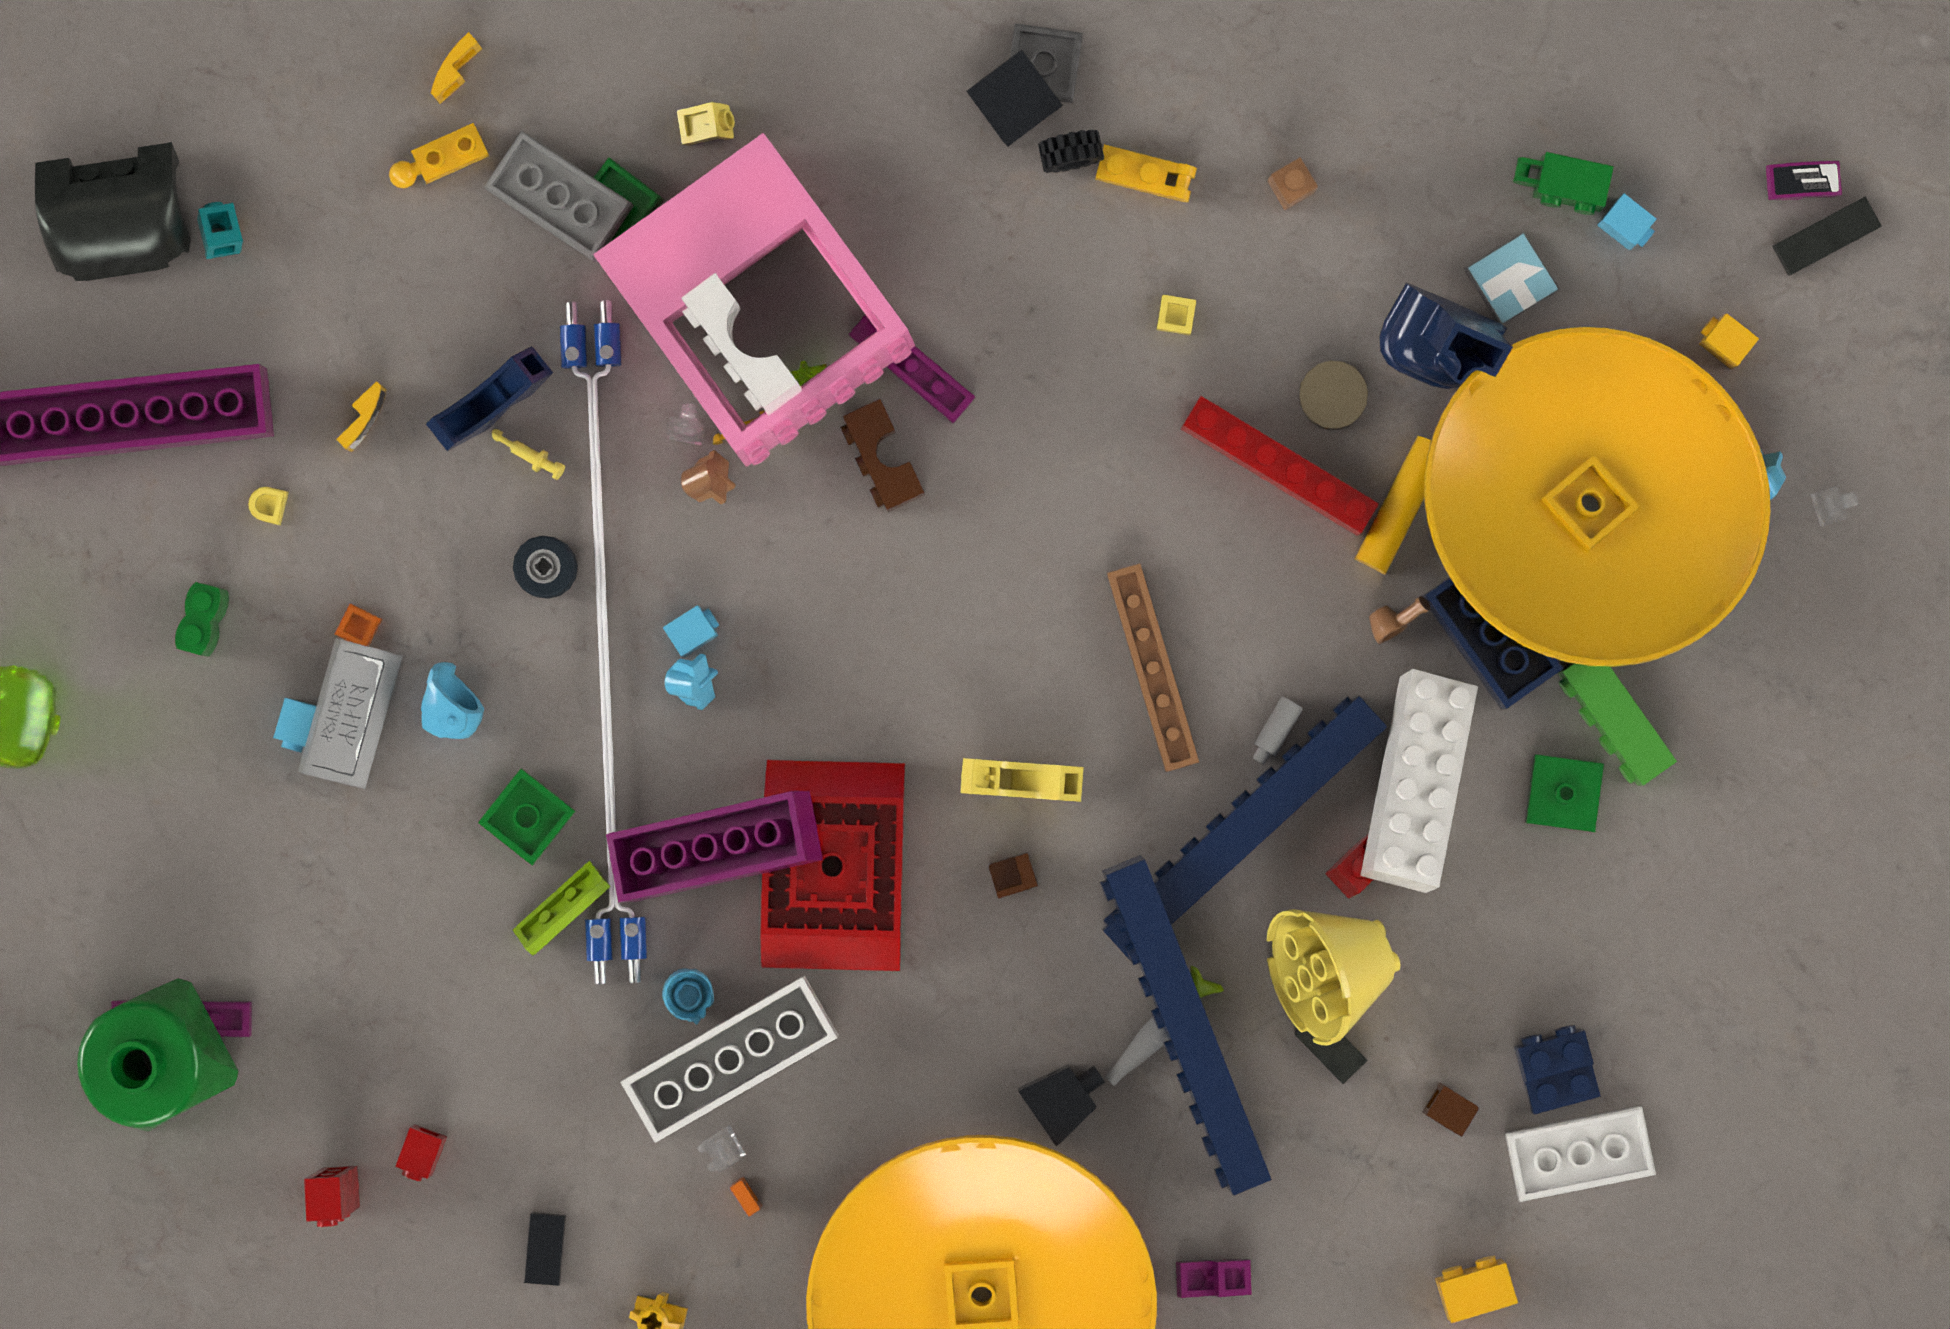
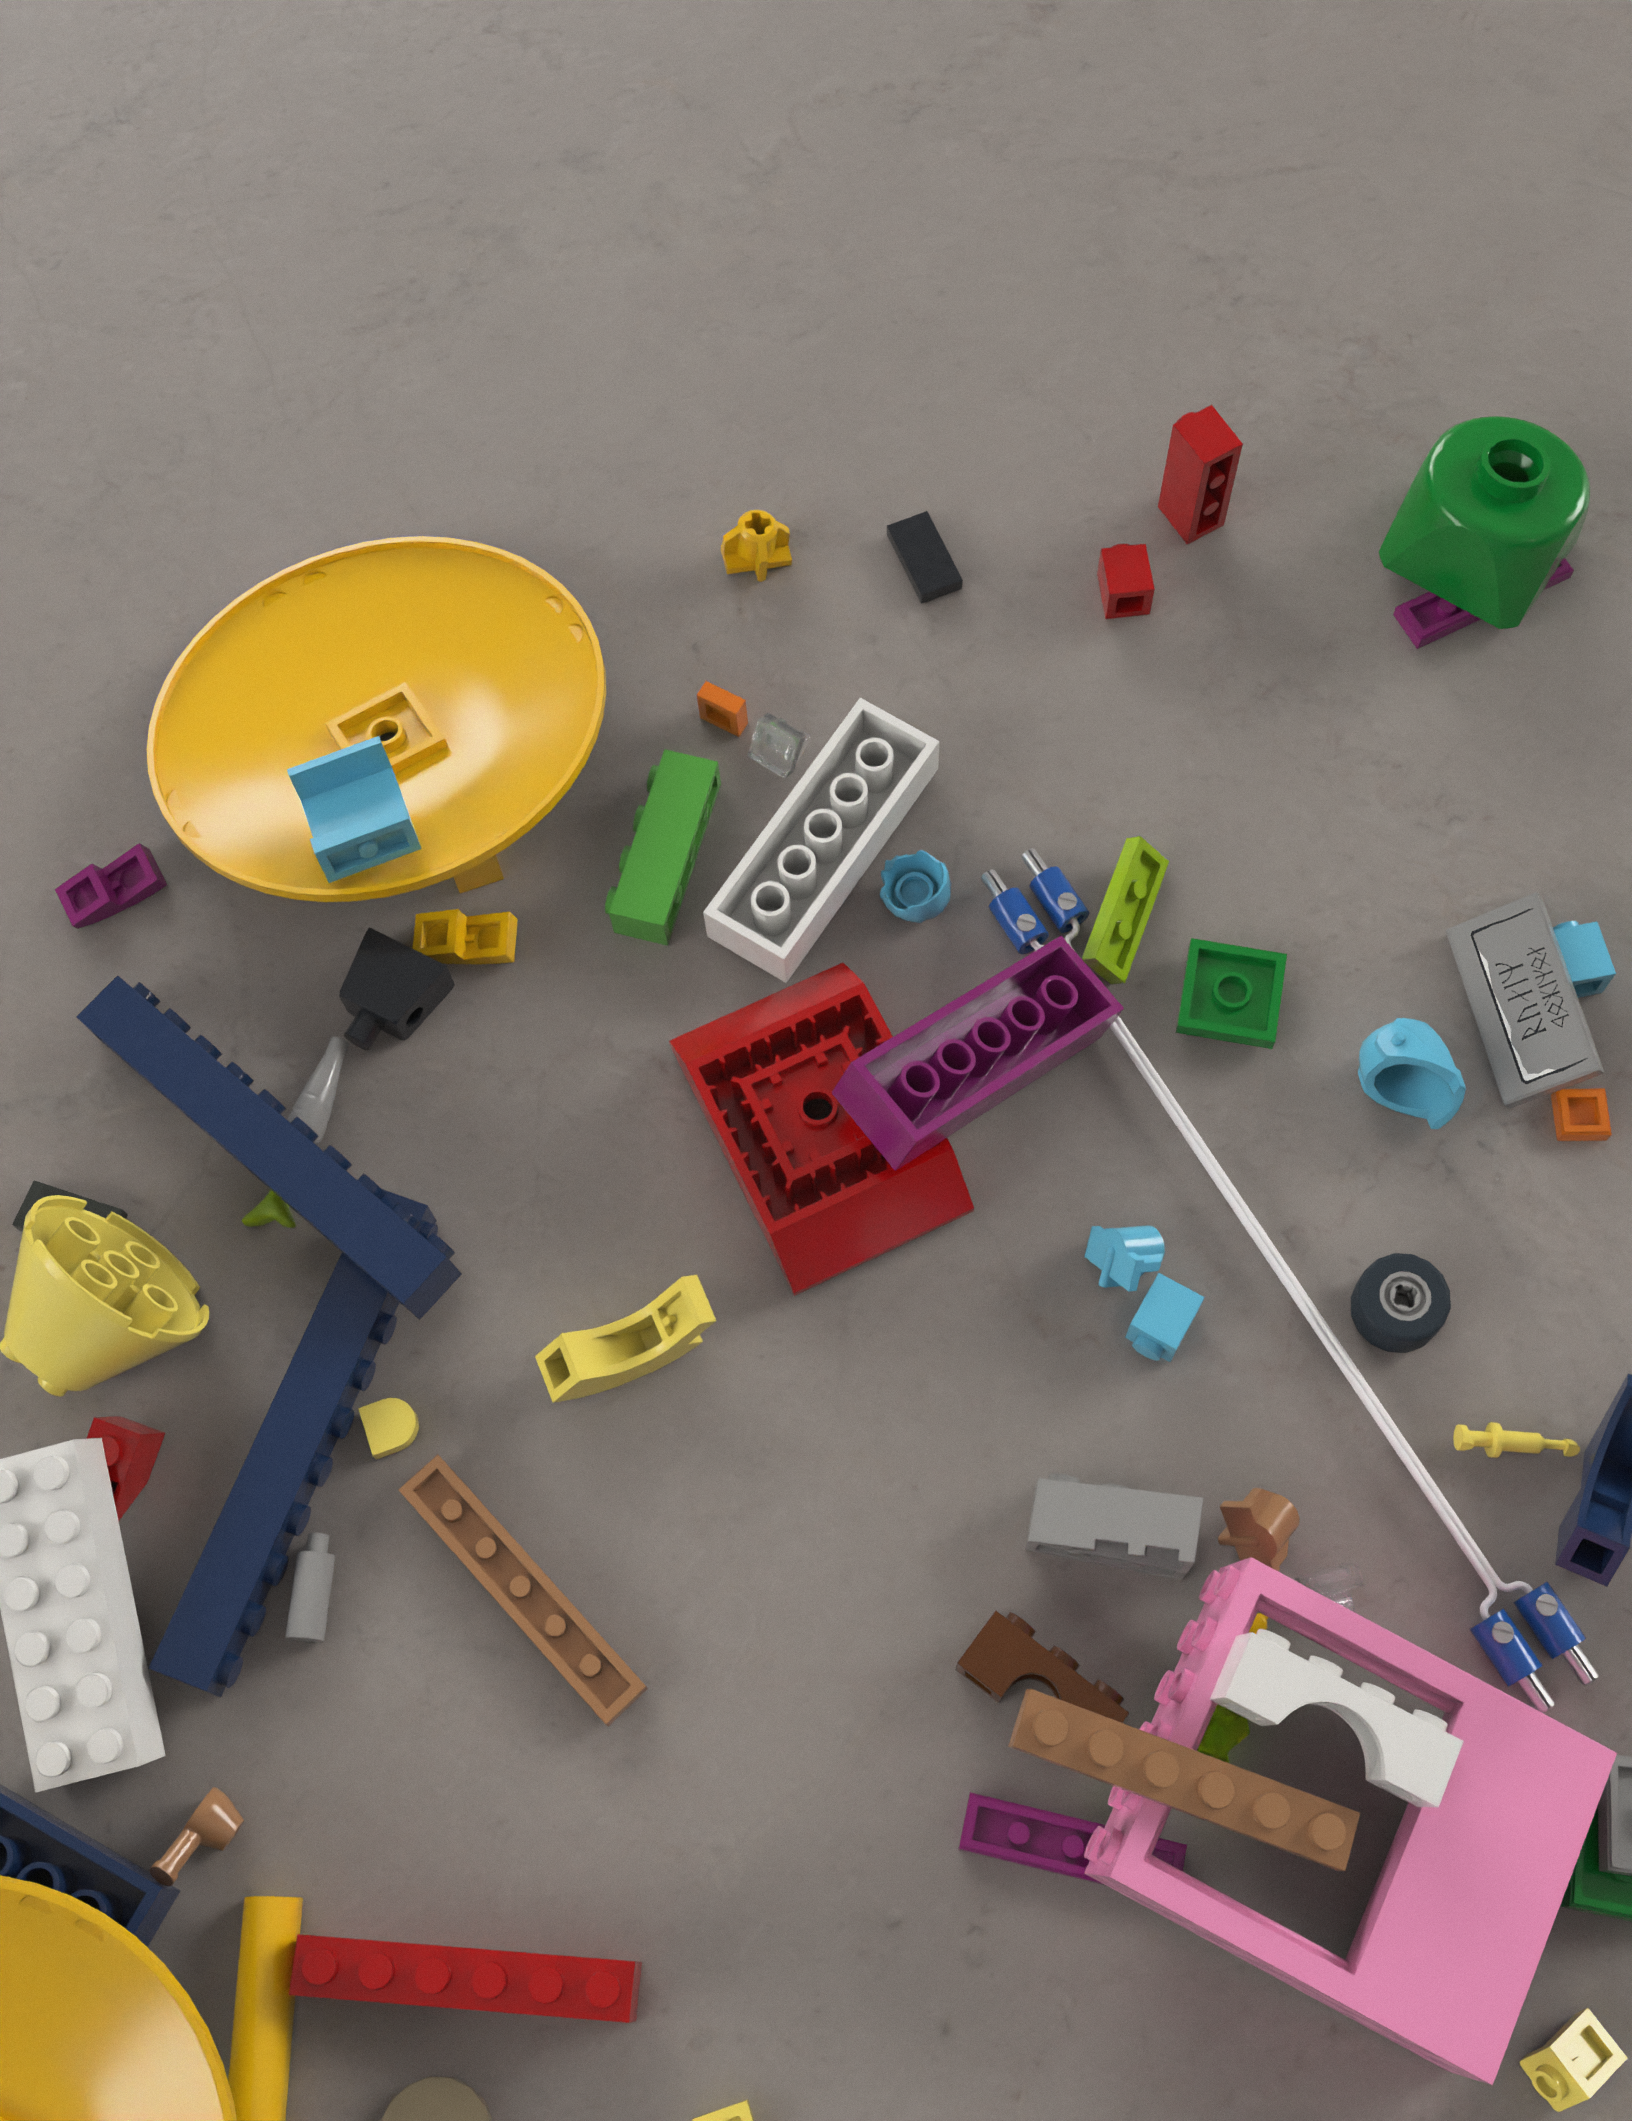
camera: 155 degrees right, 20 degrees down
(791, 524) = (1115, 1526): none -> light grey wedge
(835, 1111) = (664, 847): none -> bright green brick
(841, 356) = (1185, 1780): none -> medium nougat plate
(995, 1114) = (464, 939): none -> yellow slope
(1012, 875) = (580, 1223): reddish brown panel -> none
(1029, 1215) = (354, 809): none -> medium azure panel
(1188, 808) = (389, 1426): none -> light yellow tile

